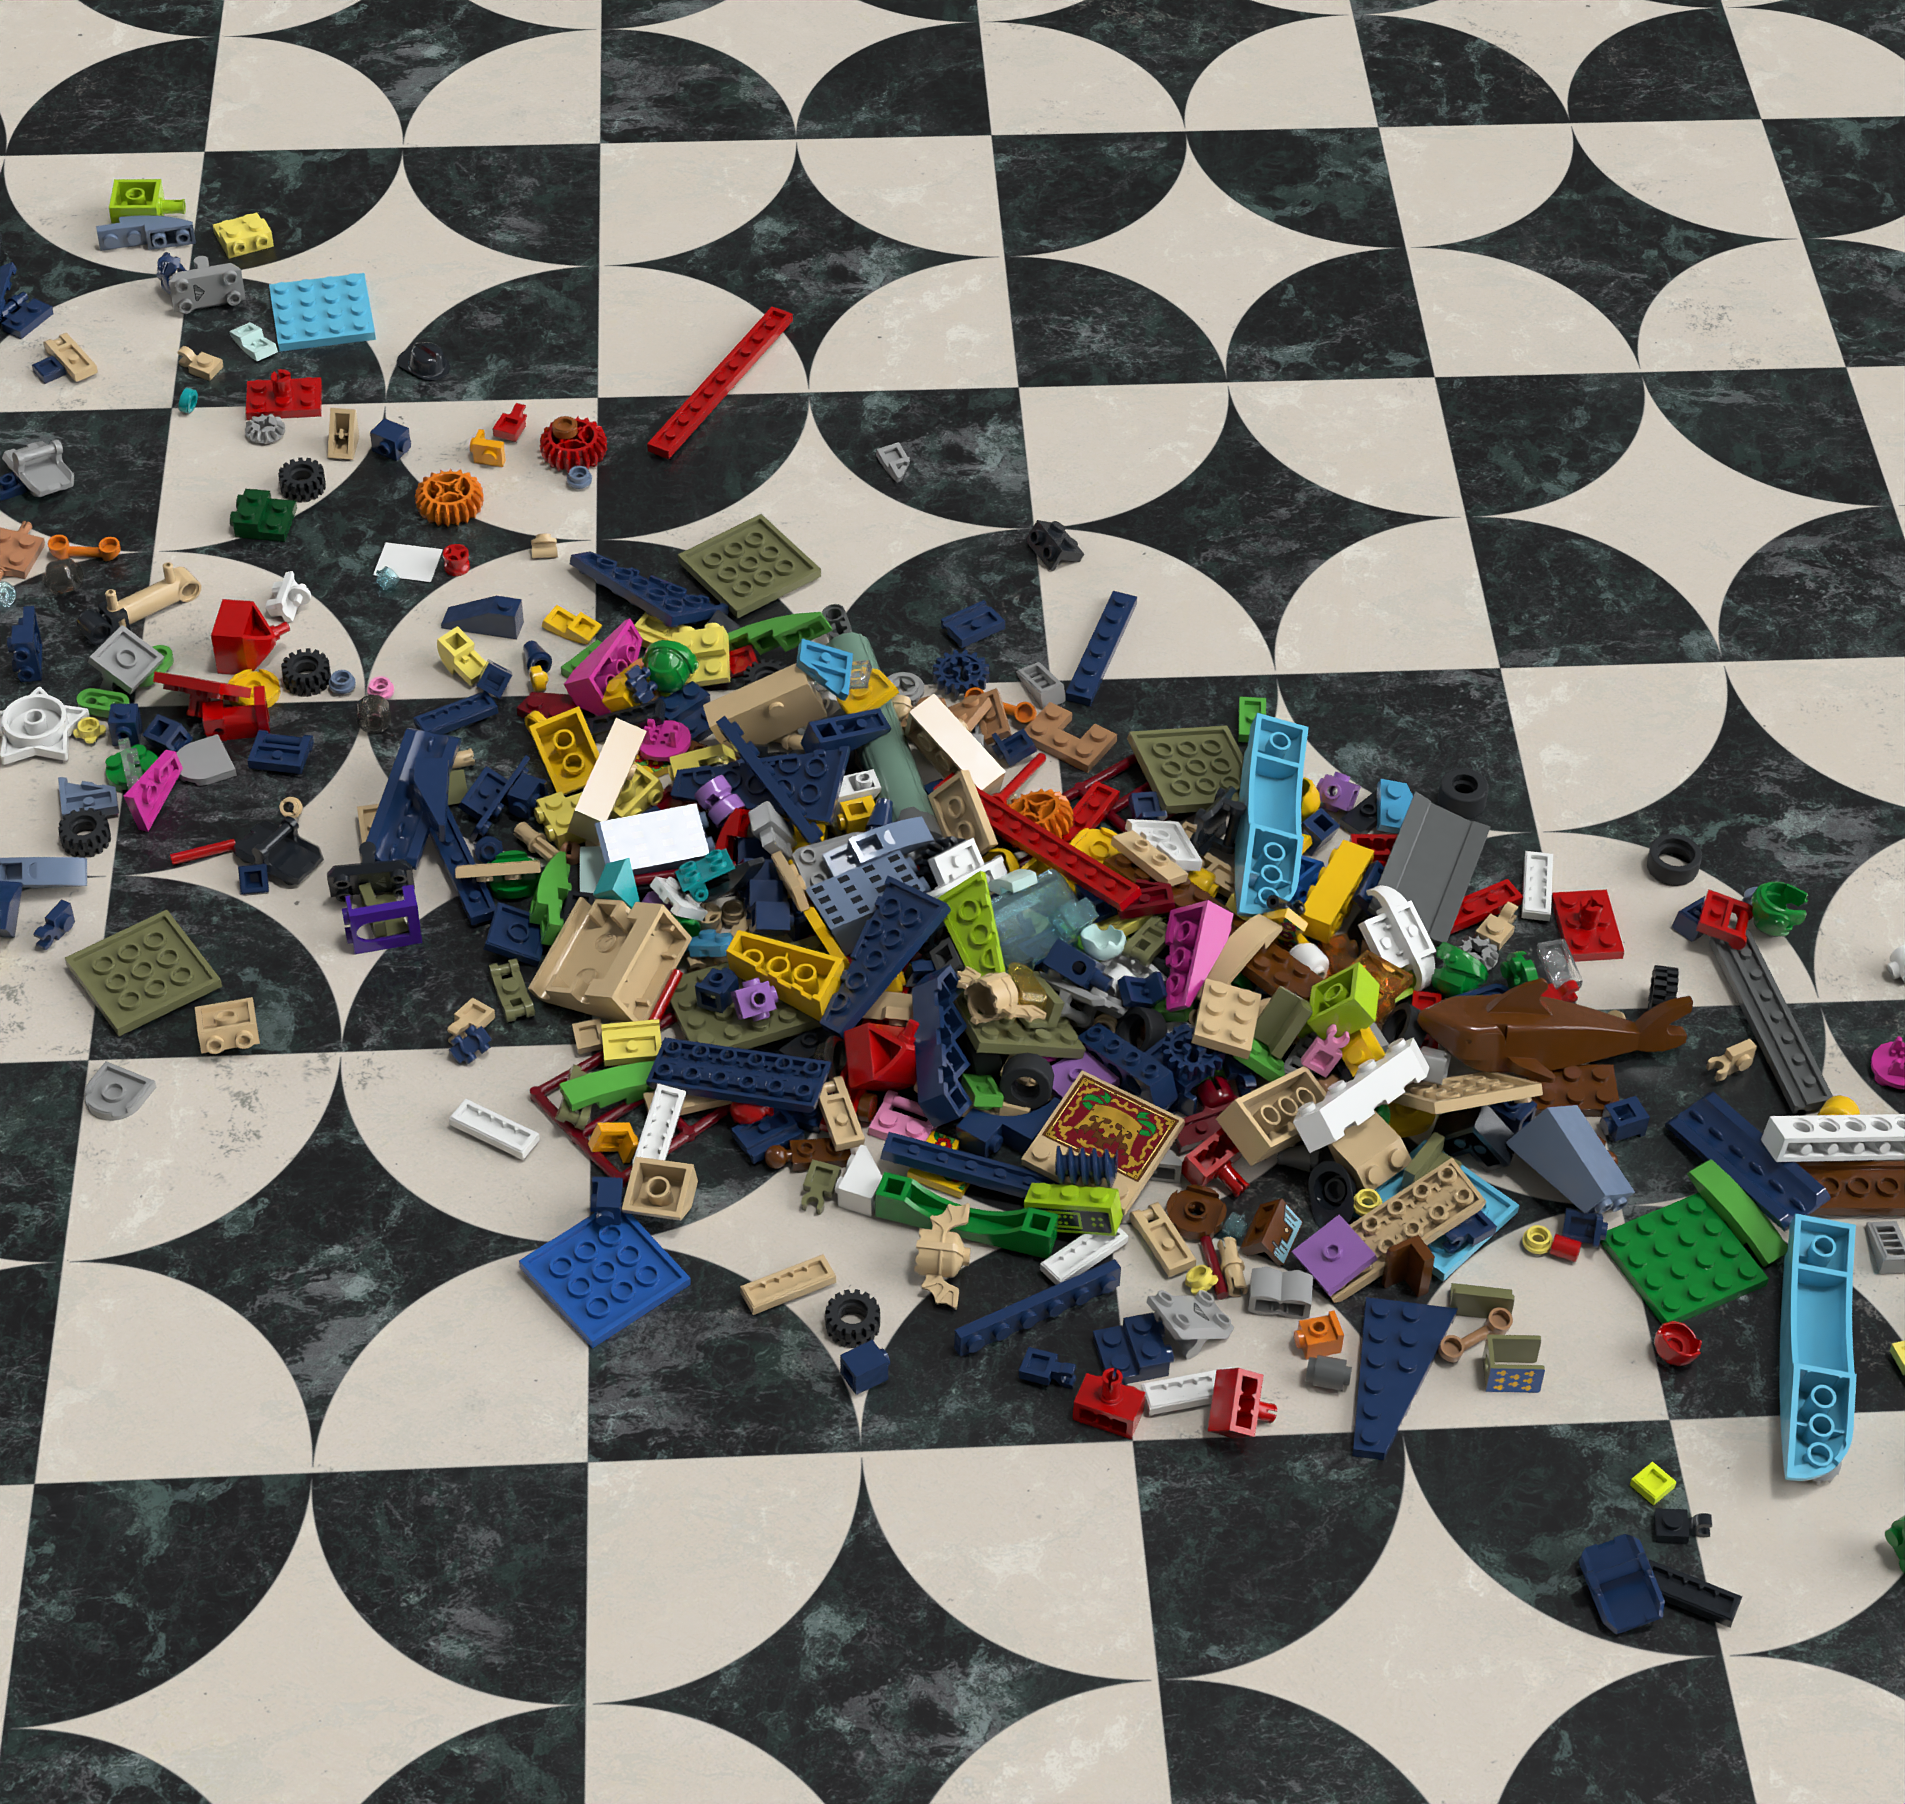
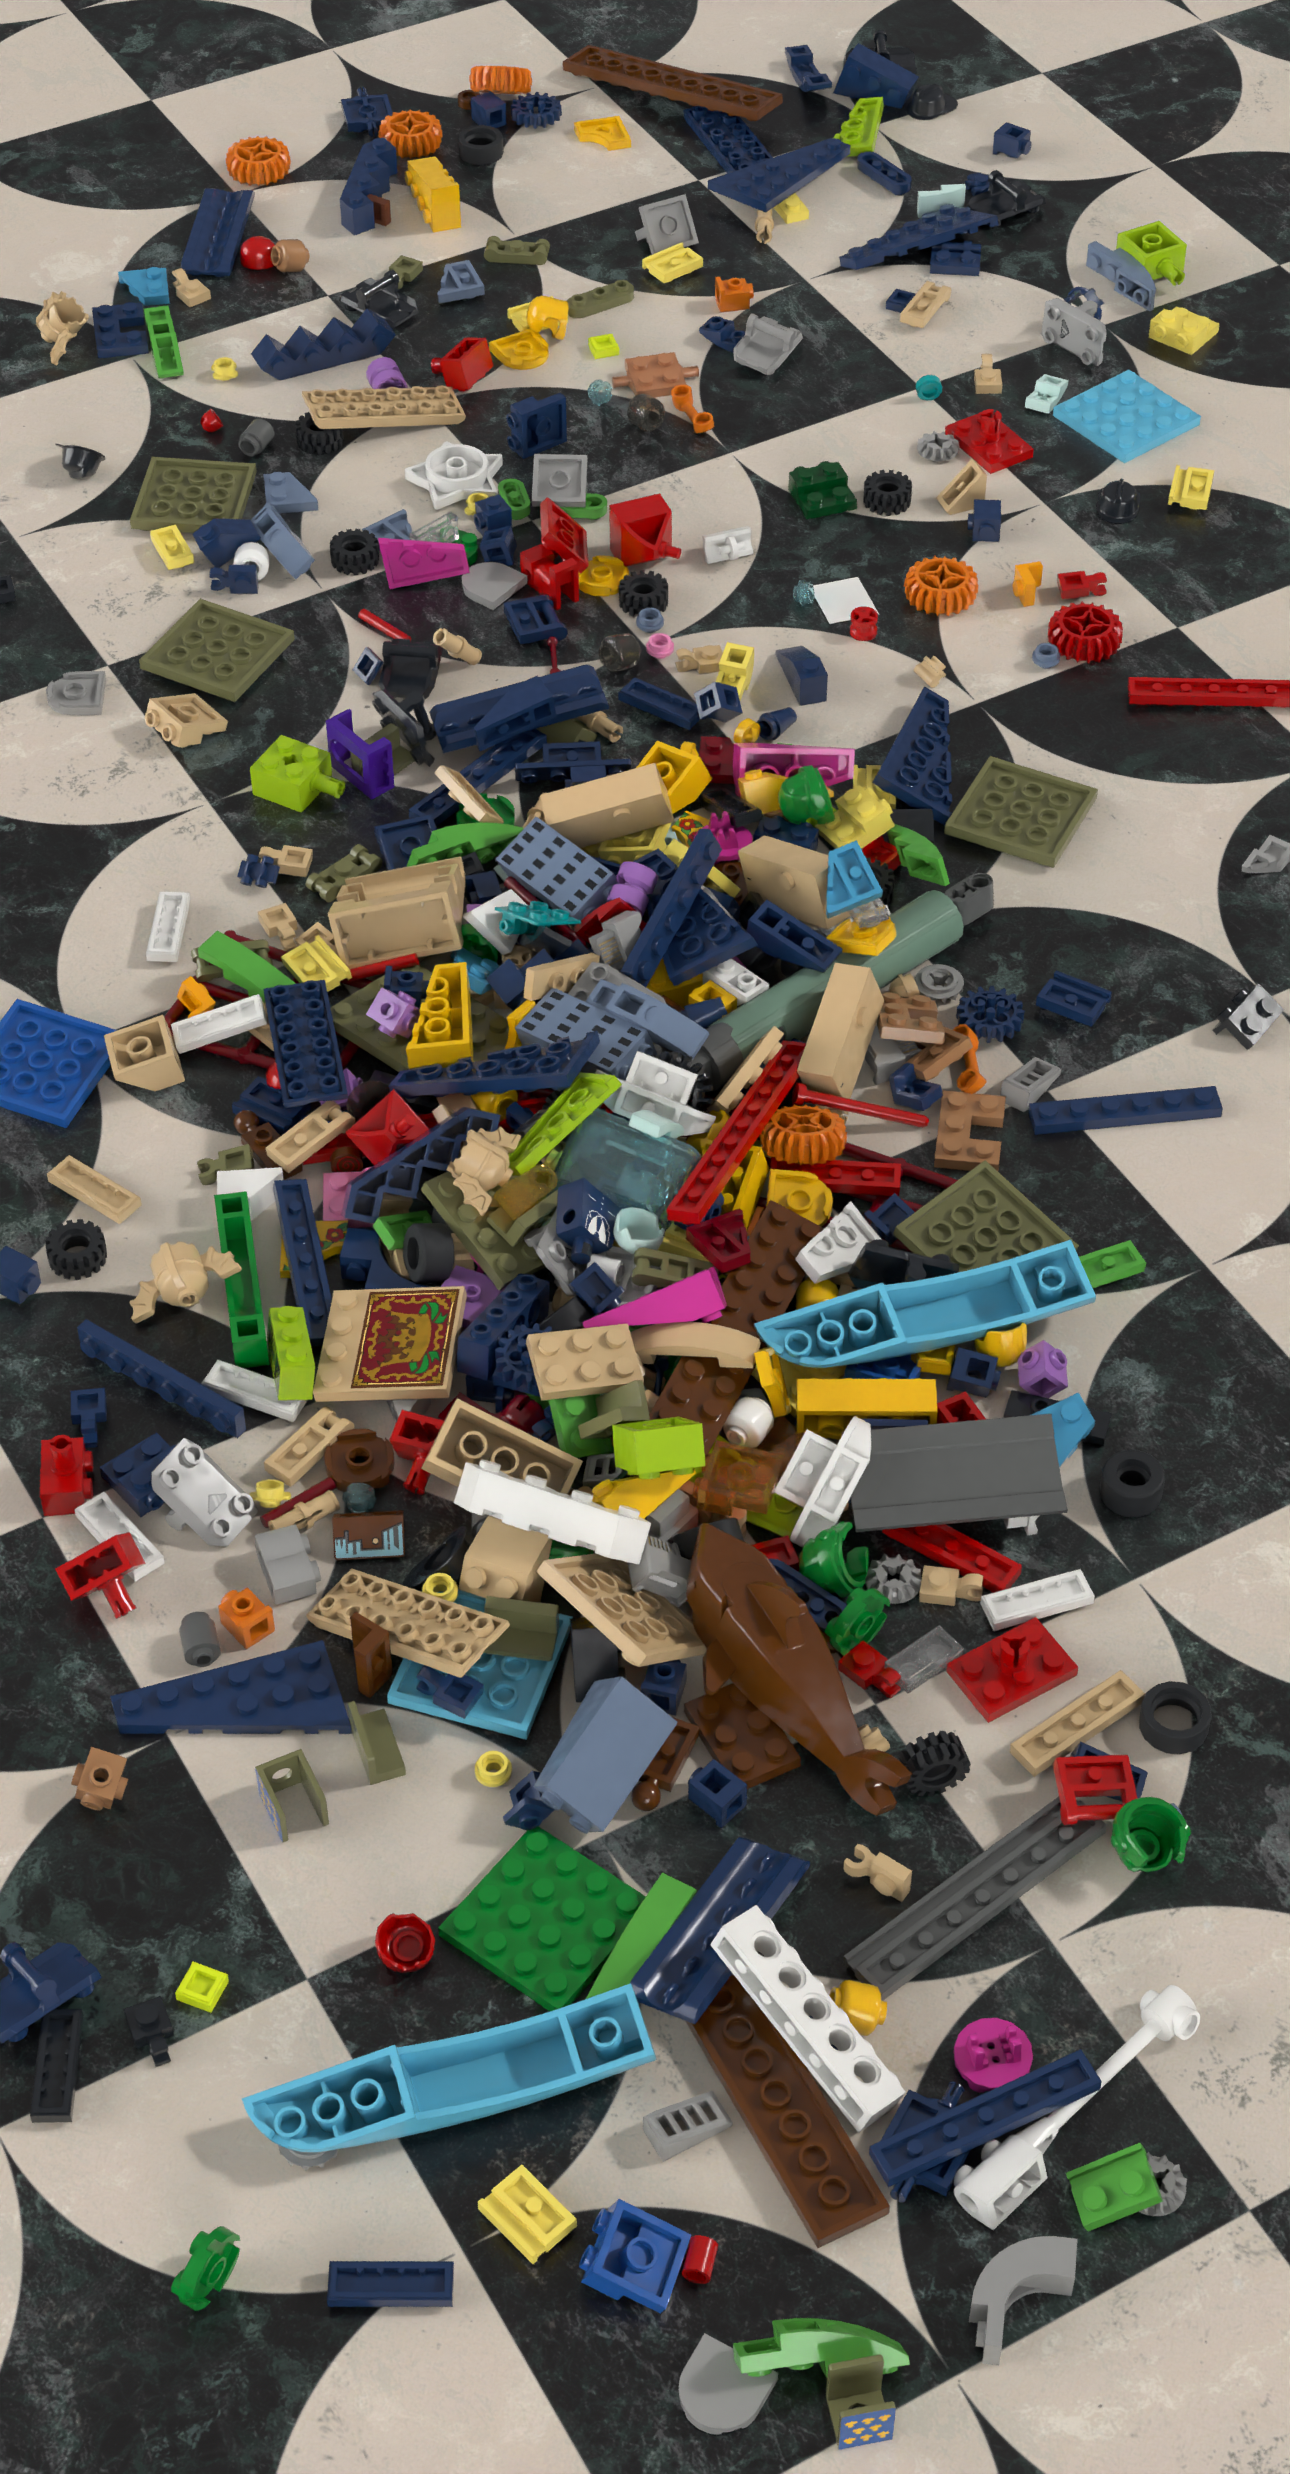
camera: 65 degrees right, 0 degrees up
(38, 903) = (253, 554): none -> white head
(177, 586) = (623, 461): tan piece -> none
(356, 767) = (552, 642): none -> dark red hinge
(366, 975) = (294, 774): none -> lime brick
(418, 669) = (704, 659): none -> tan plate
(447, 315) = (1191, 487): none -> light yellow plate
(488, 848) = (507, 787): dark blue plate -> none
(546, 1052) = (279, 922): none -> tan plate
(564, 427) = (1087, 610): dark orange tile -> none
(571, 627) = (841, 727): yellow slope -> none
(607, 1200) = (104, 1020): dark blue brick -> none
(618, 883) = (476, 870): teal slope -> none
(638, 684) = (766, 782): dark blue piece -> none
(1086, 1166) = (328, 1330): dark blue piece -> none
(1149, 858) = (791, 1232): tan plate -> none
(1277, 903) = (788, 1357): black arm -> none
(1324, 1054) = (600, 1464): bright pink plate -> none
(1334, 1255) = (348, 1584): medium lavender plate -> none
(1442, 1476) = (100, 1767): none -> medium nougat brick
(1497, 1323) = (290, 1737): medium nougat bar -> none
(1565, 1248) = (495, 1798): red hinge -> none
(1654, 910) = (1077, 1723): none -> tan plate

